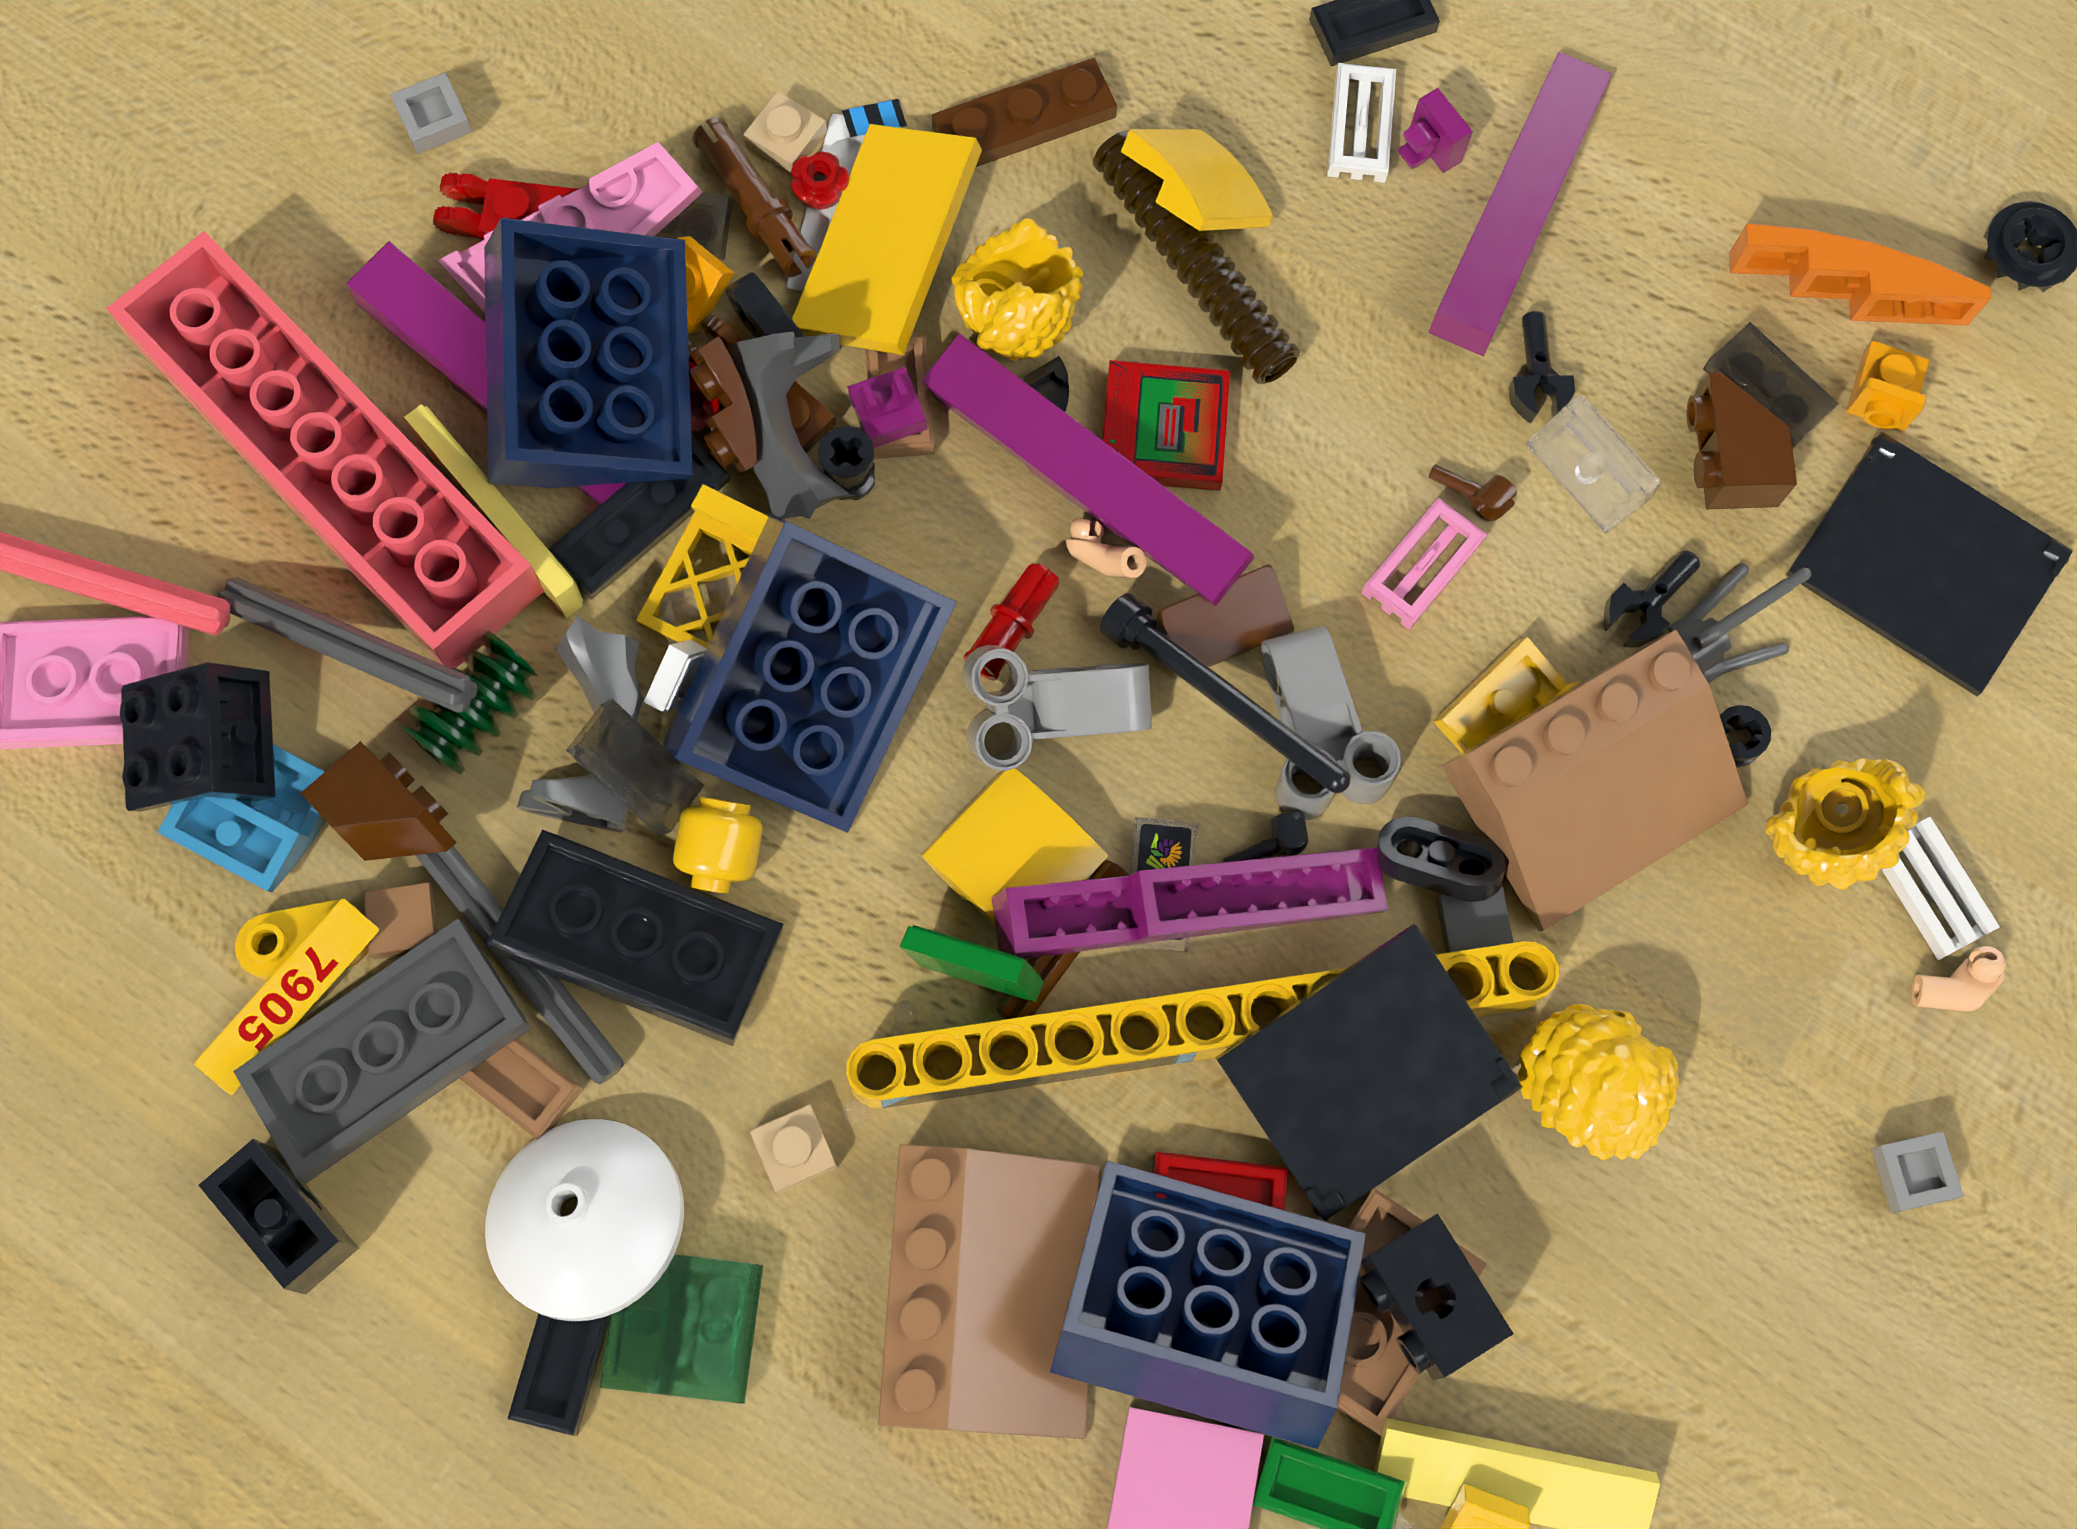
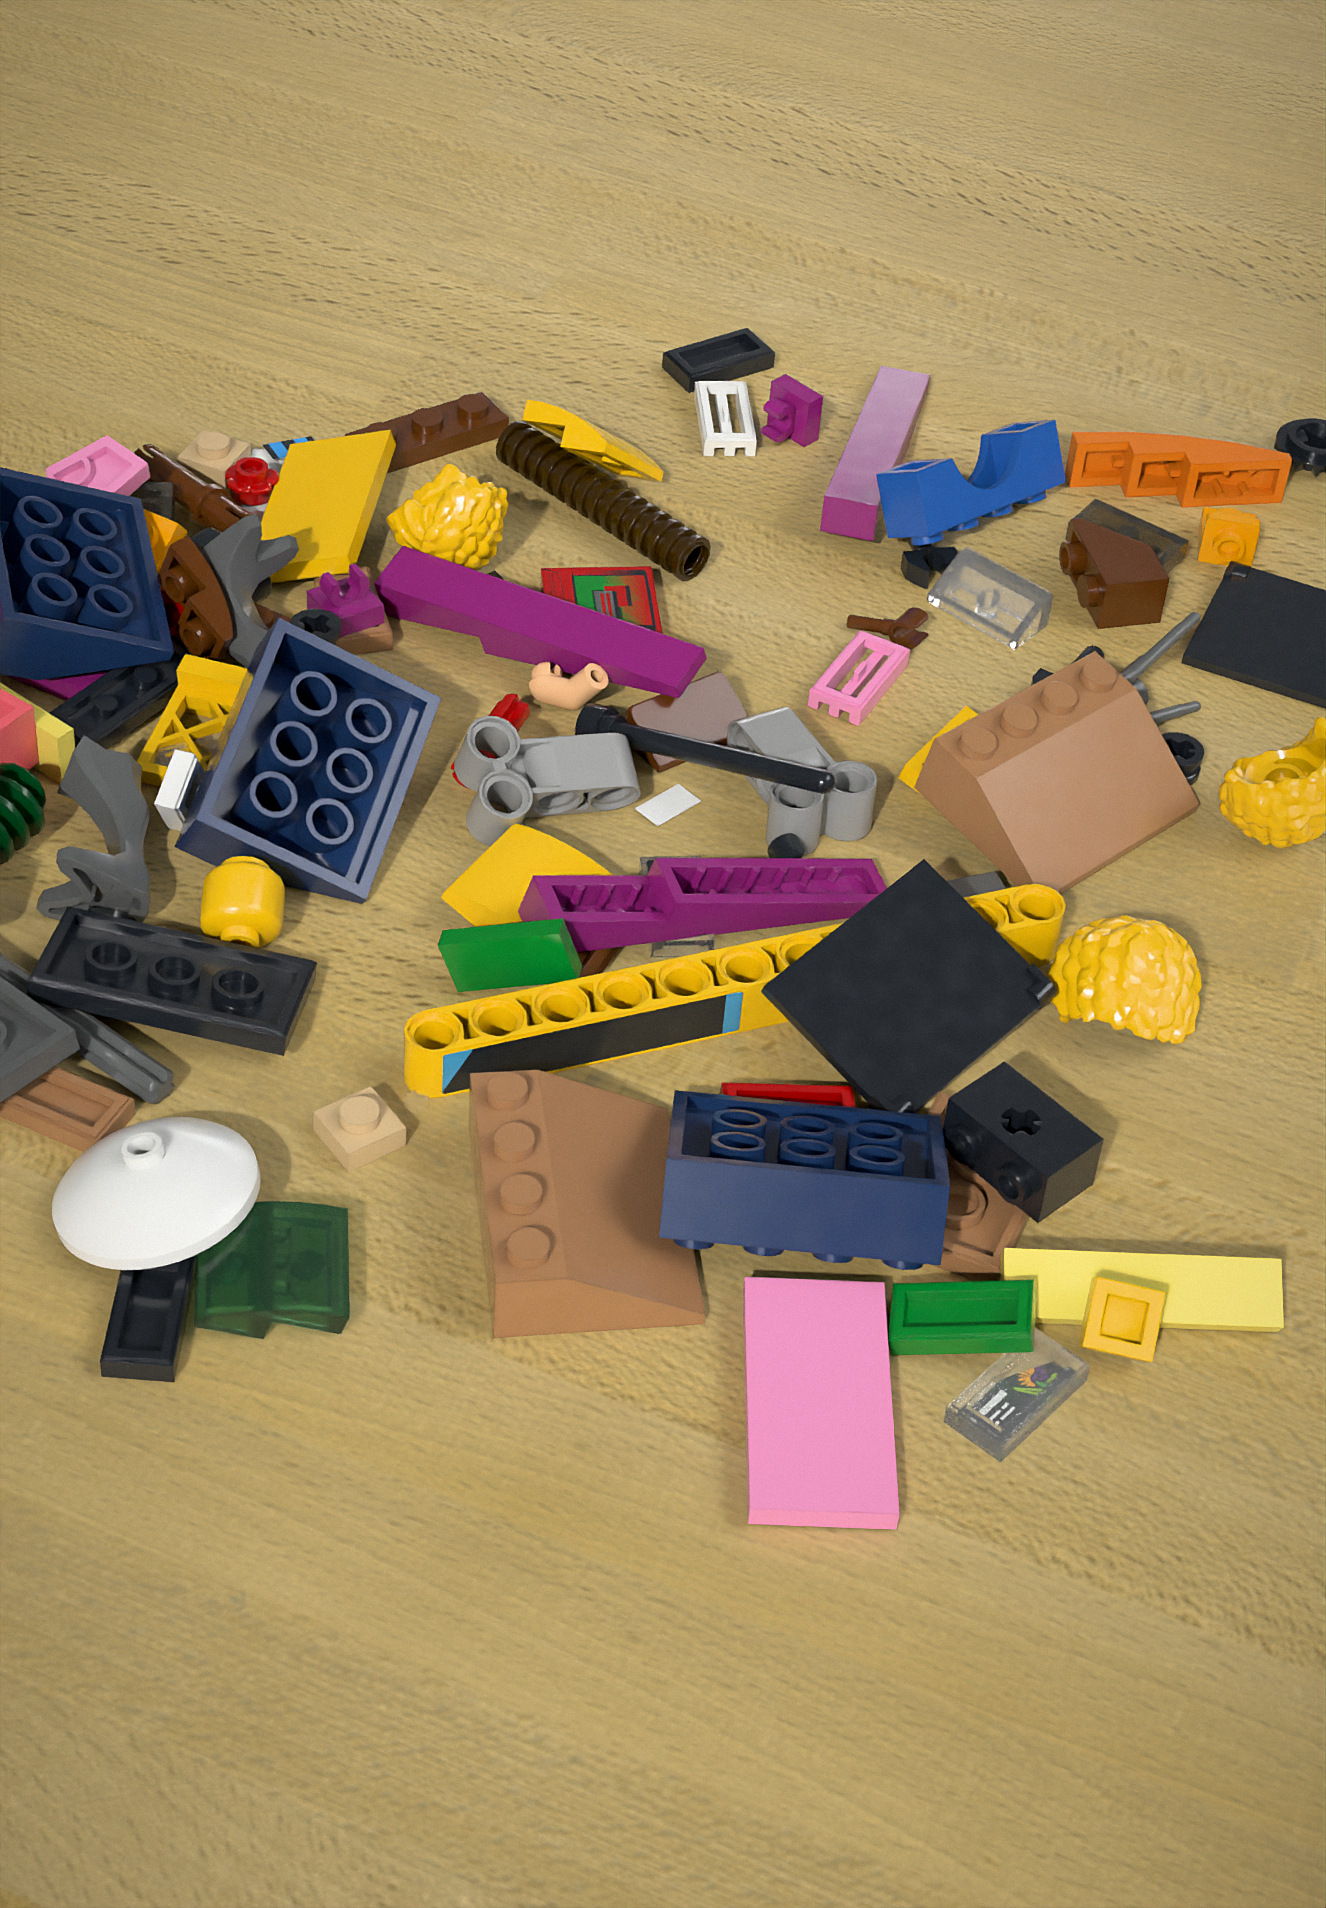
camera: 10 degrees left, 30 degrees down
(635, 767) = (152, 849): clear smoke plate -> none
(1183, 727) = (668, 804): none -> white sticker
(1443, 859) = (953, 852): black plate -> none
(1668, 267) = (933, 496): none -> blue arch

